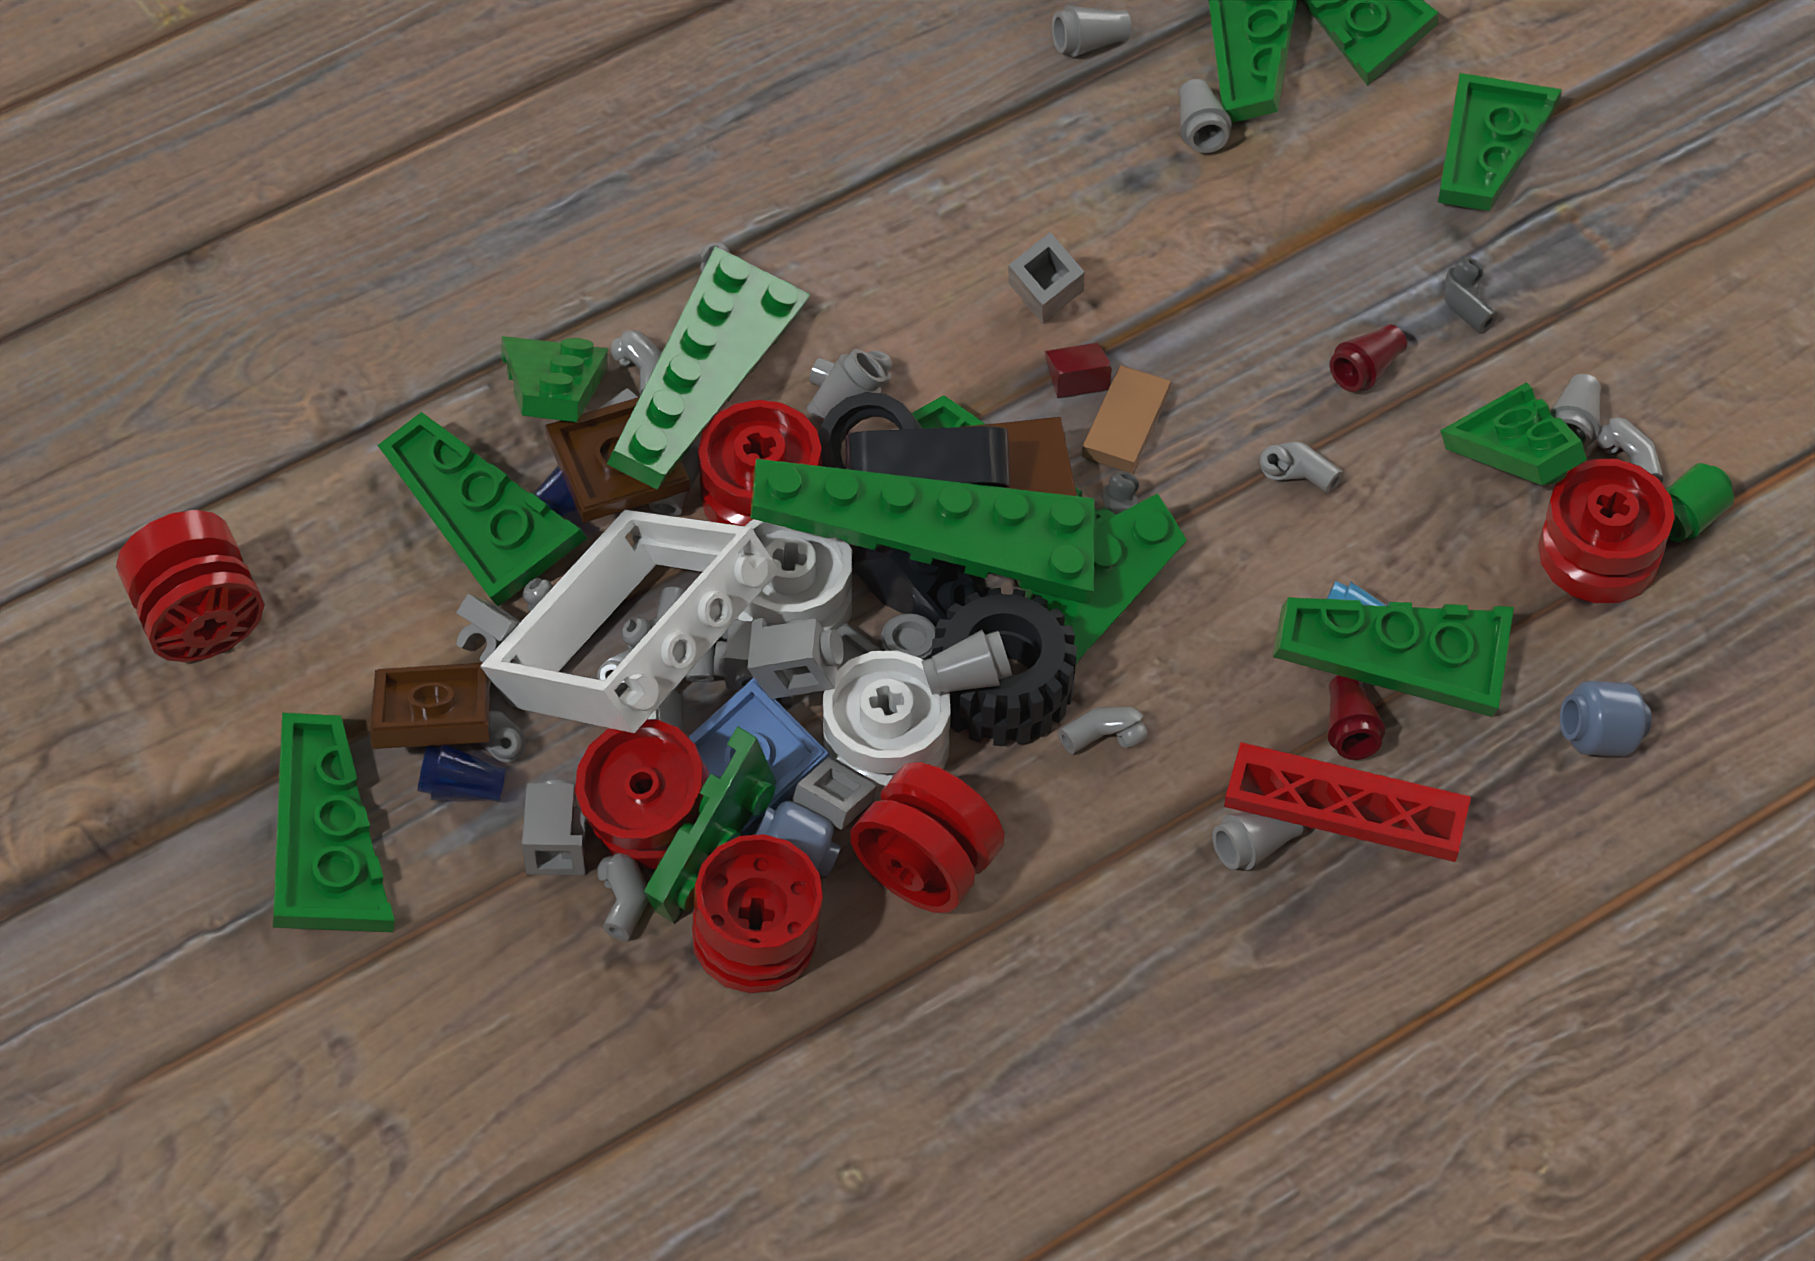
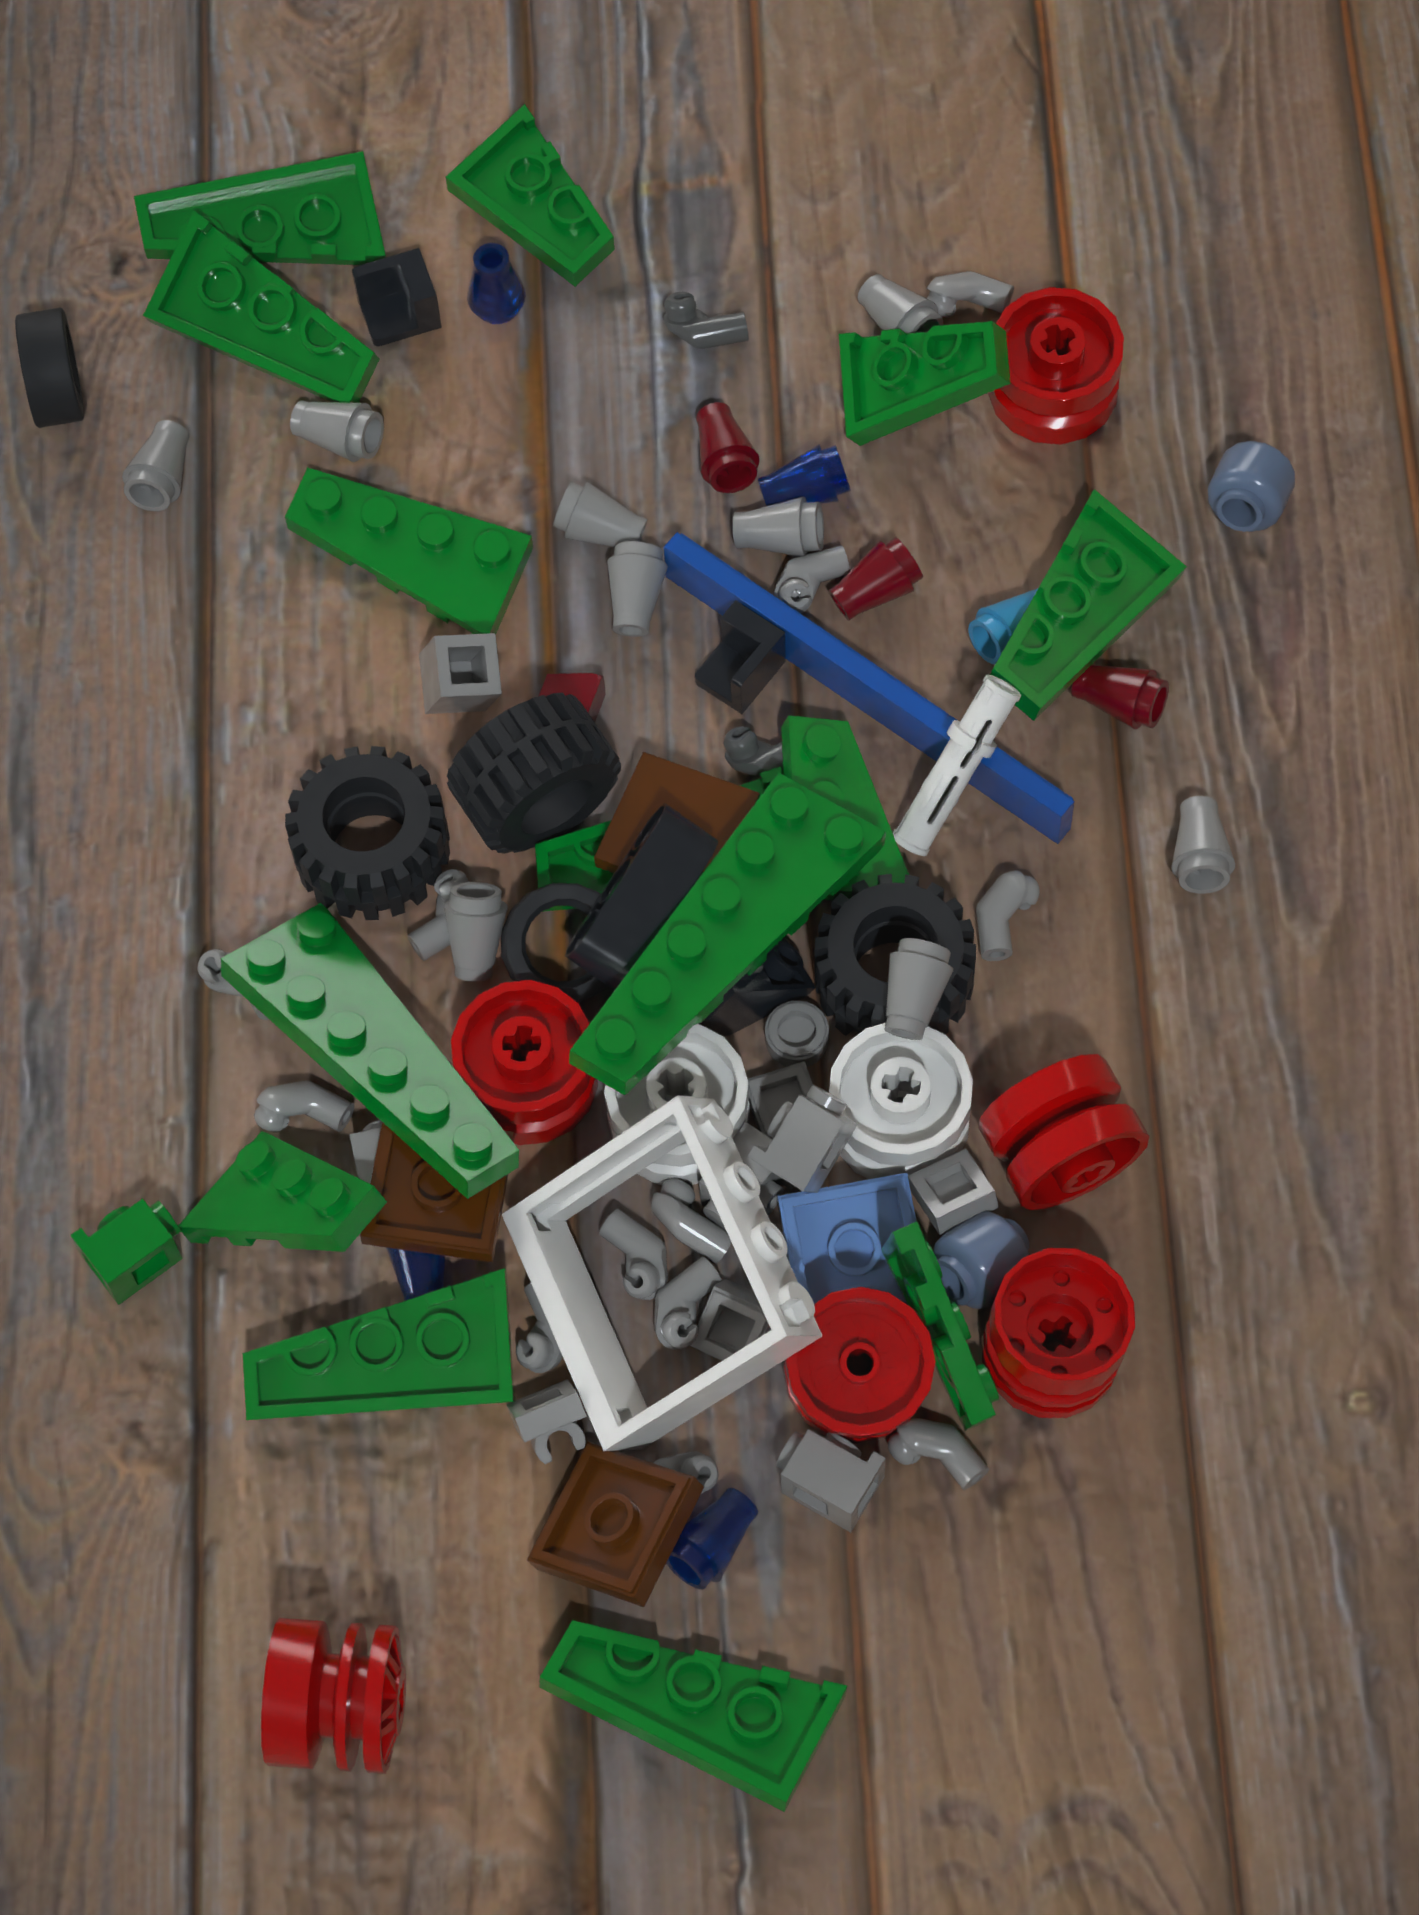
camera: 55 degrees left, 10 degrees up
(464, 314) = (130, 1247): none -> green brick
(885, 256) = (357, 789): none -> black tyre
(989, 352) = (533, 772): none -> black tyre
(1126, 419) = (657, 698): medium nougat tile -> none
(1142, 220) = (437, 556): none -> green wing
(1196, 460) = (744, 660): none -> black panel
(1207, 357) = (635, 584): none -> light grey cone
(1230, 548) = (868, 686): none -> blue tile
(1245, 604) = (968, 744): none -> white pin
(1246, 304) = (596, 518): none -> light grey cone
(1328, 426) = (782, 528): none -> light grey cone
(1330, 507) = (878, 578): none -> dark red cone
(1340, 98) = (396, 297): none -> black panel
(1347, 802) = (1219, 738): red fence -> none
(1385, 424) = (814, 475): none -> clear blue cone
(1392, 147) = (494, 286): none -> clear blue cone
(1699, 500) = (1058, 263): green brick -> none

